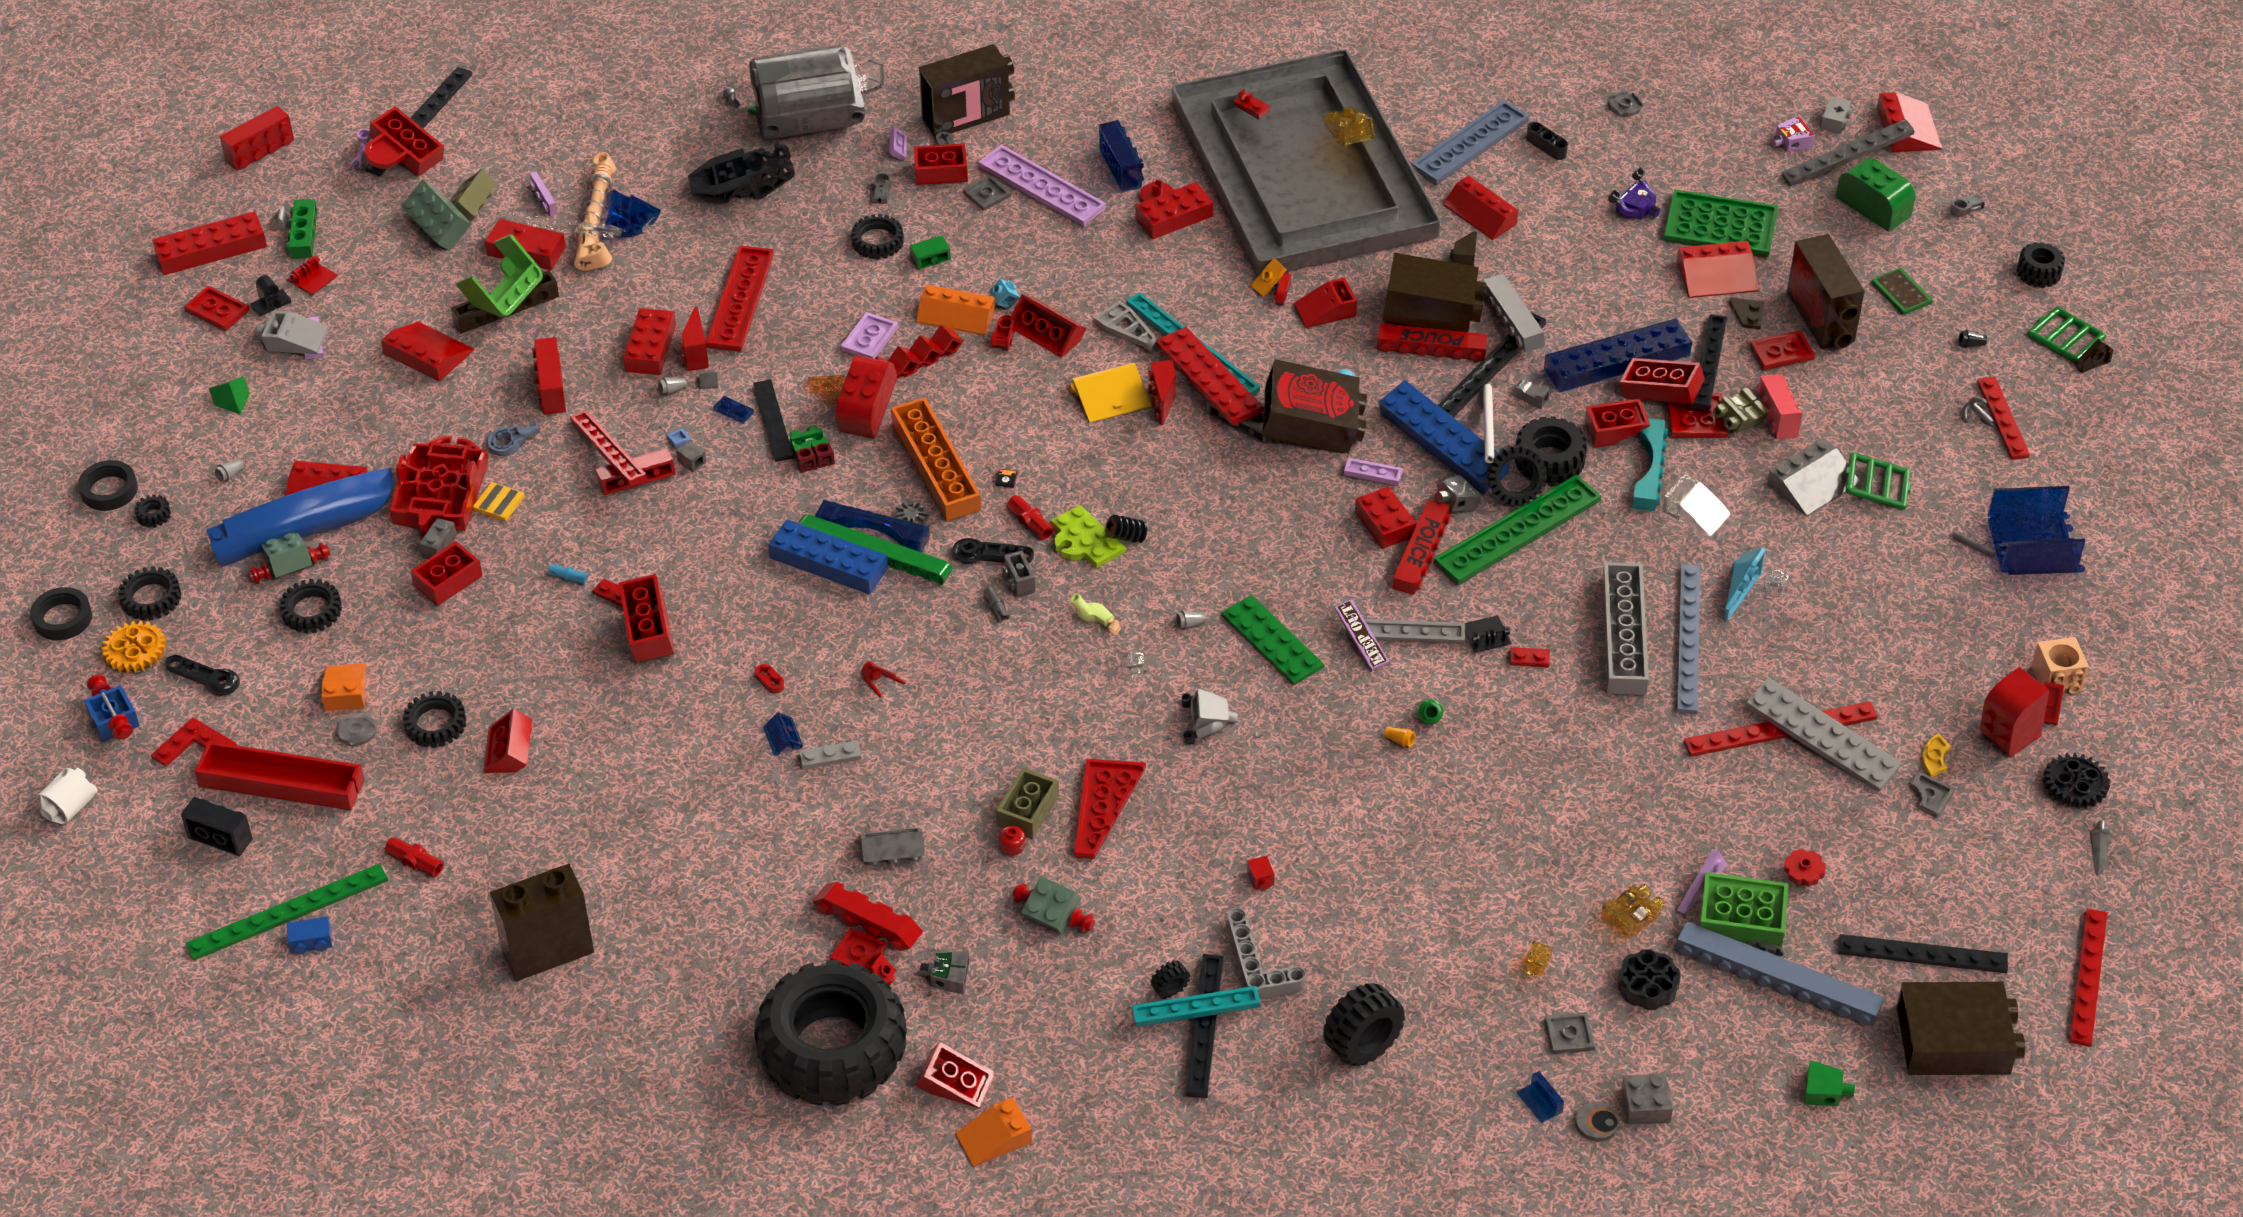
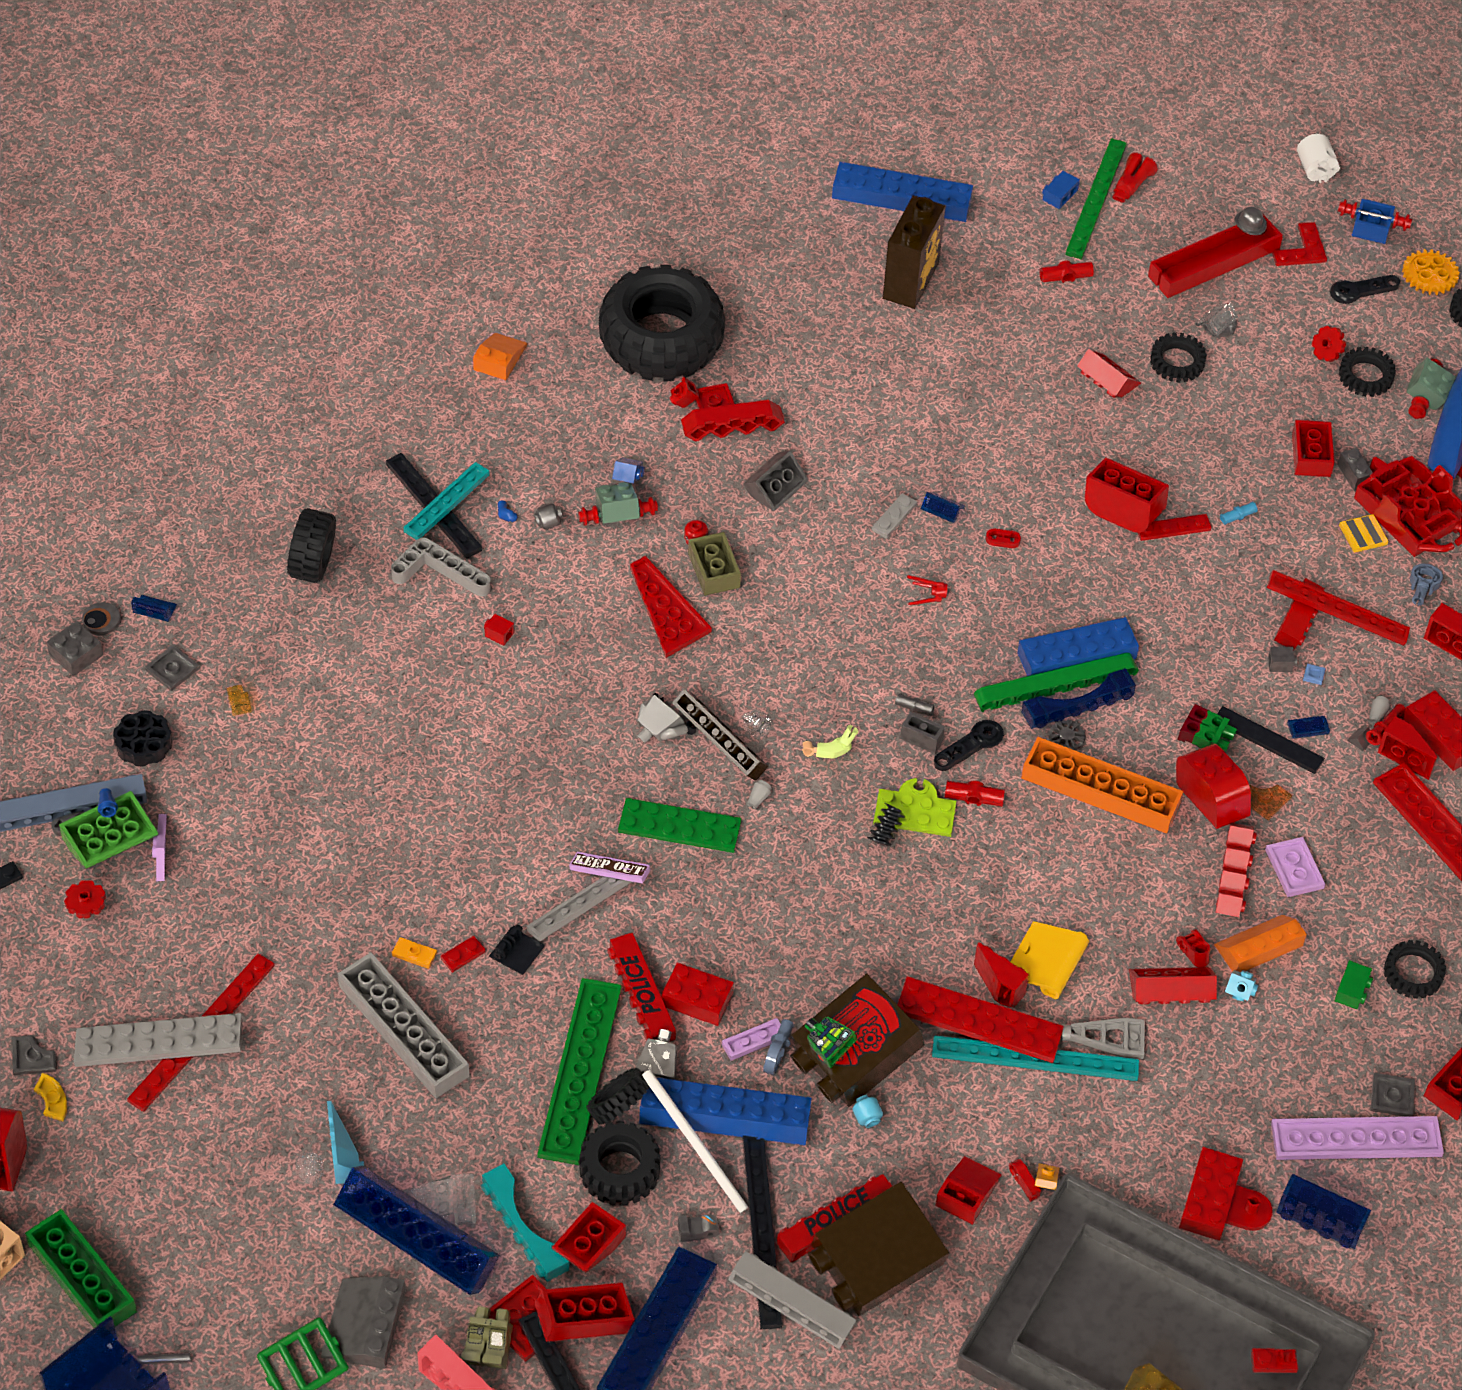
camera: 135 degrees right, 5 degrees up
(216, 826) = (1202, 199): black brick -> none
(218, 766) = (1251, 221): none -> flat silver hat
(226, 904) = (1128, 183): none -> red piece
(309, 638) = (1328, 343): none -> red plant
(344, 687) = (1267, 338): orange slope -> none
(447, 1033) = (895, 189): none -> blue brick
(689, 368) = (1380, 726): none -> red pin
(948, 971) = (640, 425): flat silver torso -> none
(954, 1076) = (562, 366): red slope -> none
(1006, 478) = (1035, 819): black tile -> none
(1010, 926) = (628, 470): none -> brick
(1117, 943) = (548, 516): none -> flat silver head
(1148, 970) = (504, 513): none -> blue arm
(1170, 979) = (483, 509): black tyre -> none
(1174, 671) = (720, 734): none -> dark brown brick
(1339, 396) = (829, 1039): none -> torso
(1363, 448) = (777, 1047): none -> sand blue pin
(1401, 736) = (500, 808): light orange cone -> none
(1429, 711) = (494, 838): green head -> none
(1464, 250) = (910, 1354): dark brown slope -> none
(1566, 680) = (414, 953): none -> light orange plate
(1633, 910) = (198, 784): clear yellow hips -> none
(1688, 639) = (347, 1068): sand blue plate -> none
(1734, 493) = (416, 1230): none -> clear blue brick
(1734, 912) = (107, 806): none -> blue cone
(2000, 618) = (80, 1270): none -> green brick

